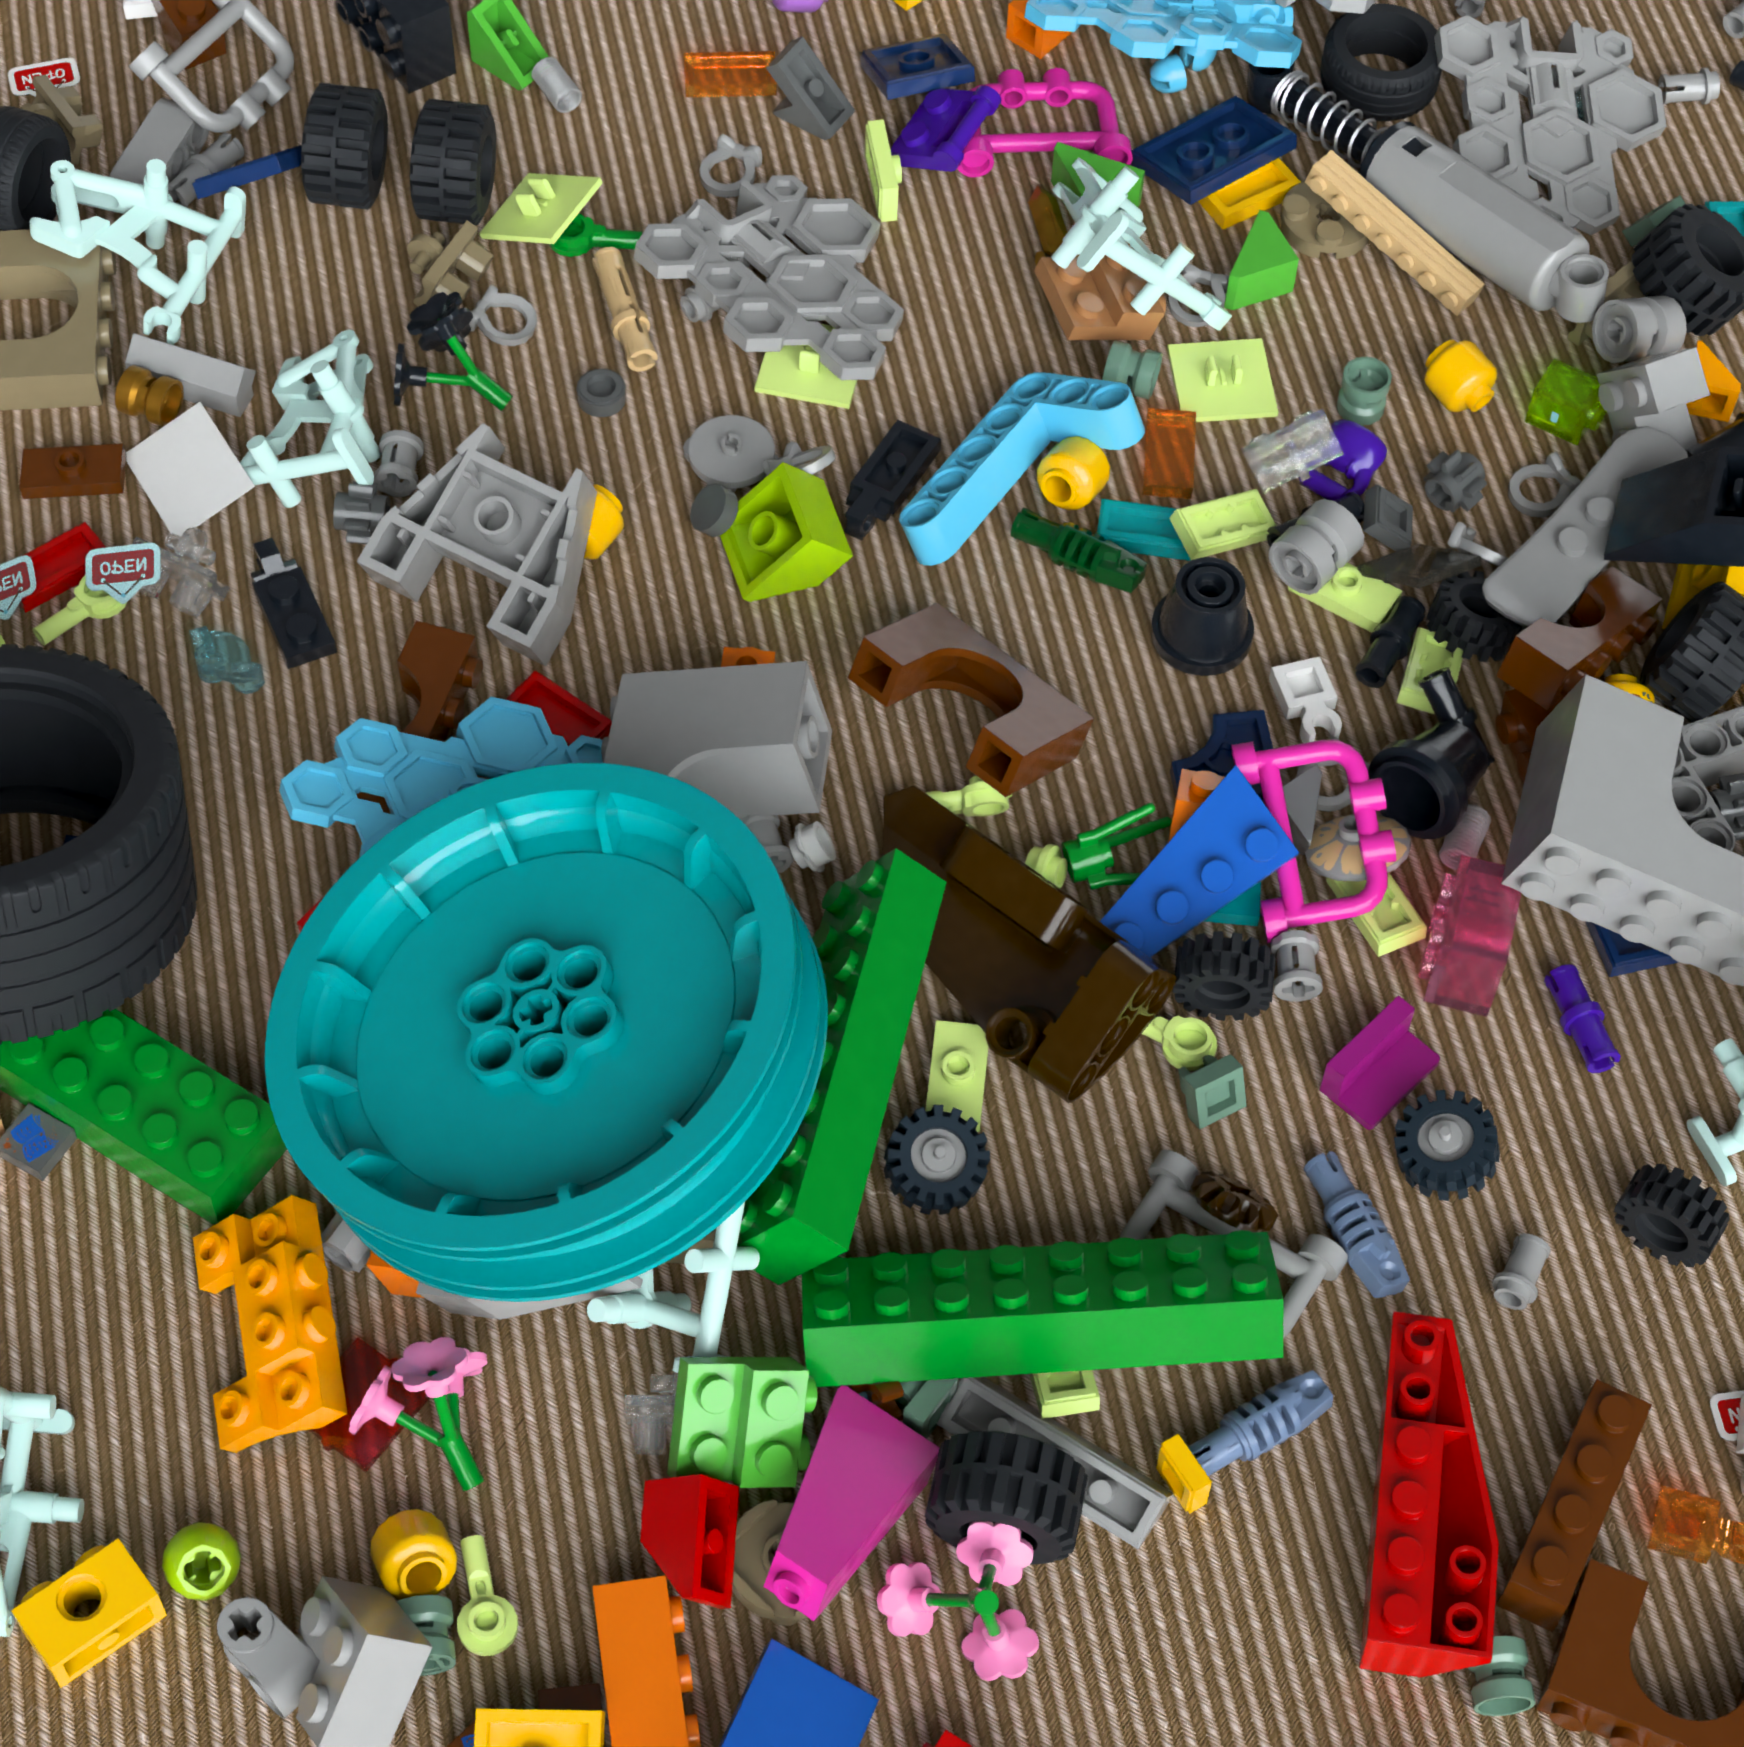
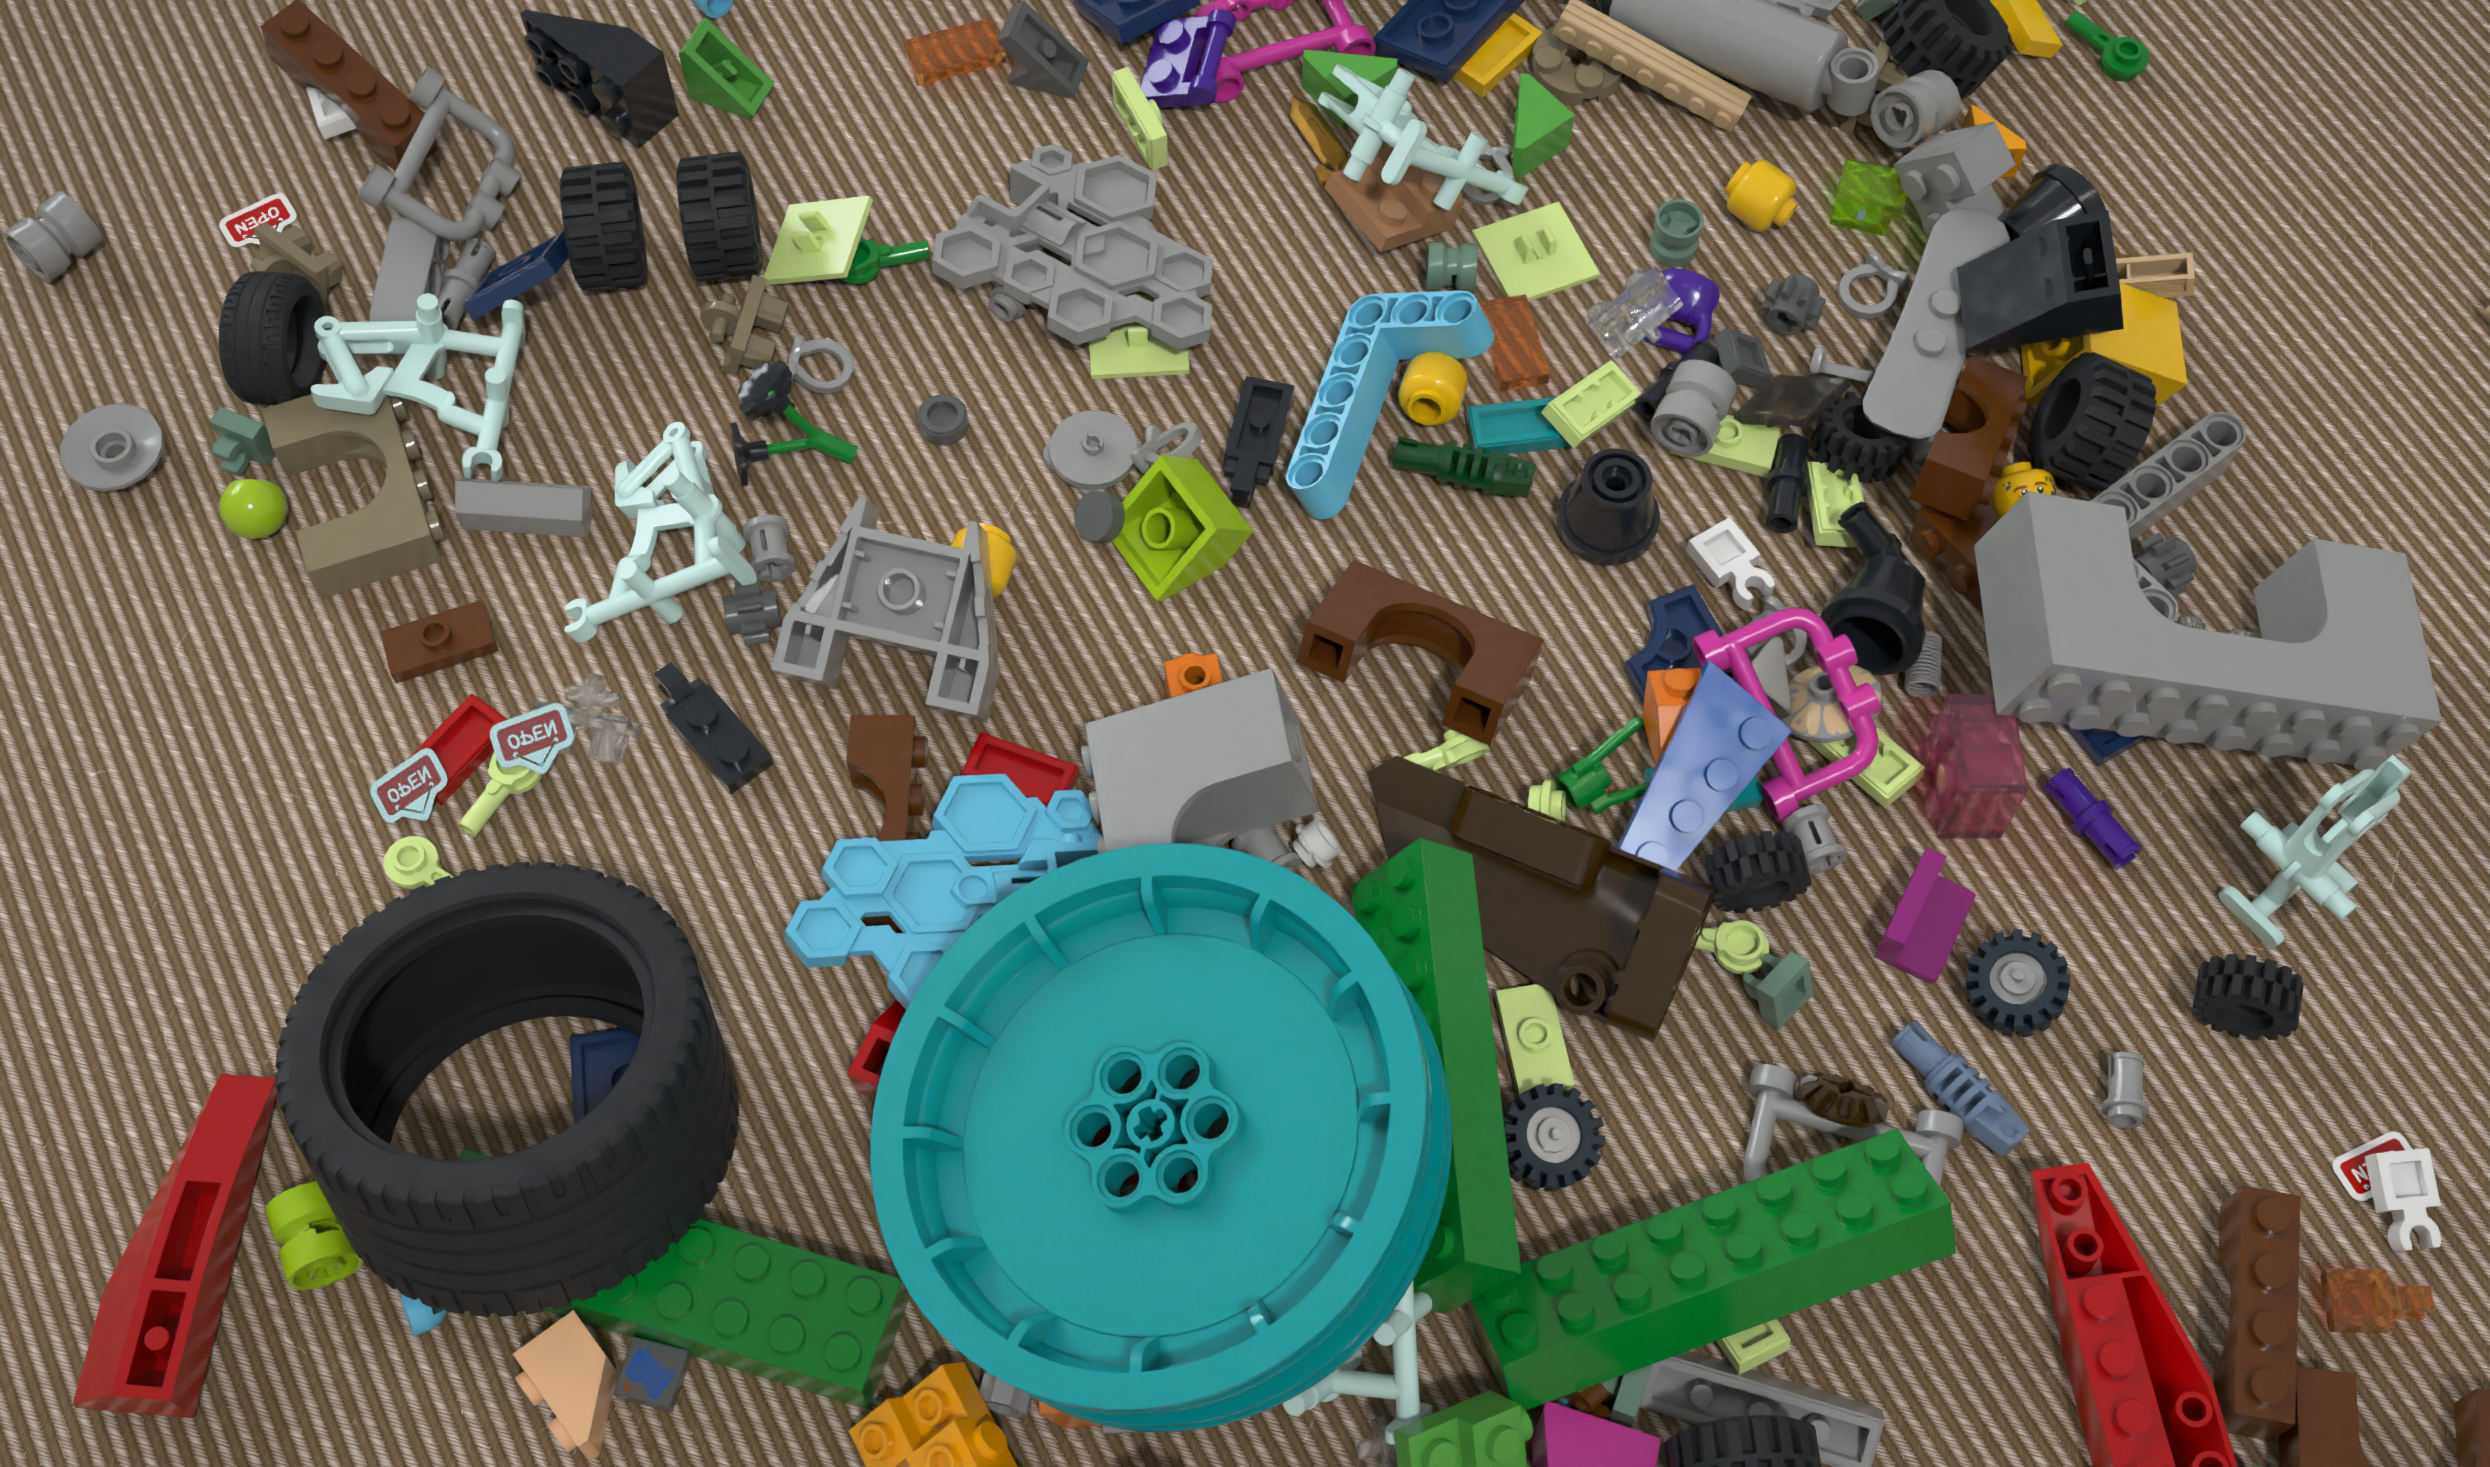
camera: 15 degrees left, 5 degrees up
(150, 396) = (491, 541): pearl gold wheel -> none
(188, 470) = (560, 612): white sticker -> none
(225, 658) = (665, 802): clear light blue piece -> none
(553, 83) = (785, 105): light grey piece -> none
(629, 322) = (946, 339): tan pin -> none
(728, 148) = (977, 131): light grey piece -> none
(1183, 1474) = (1889, 1390): yellow tile -> none
(1264, 1422) = (1940, 1318): sand blue hinge -> none

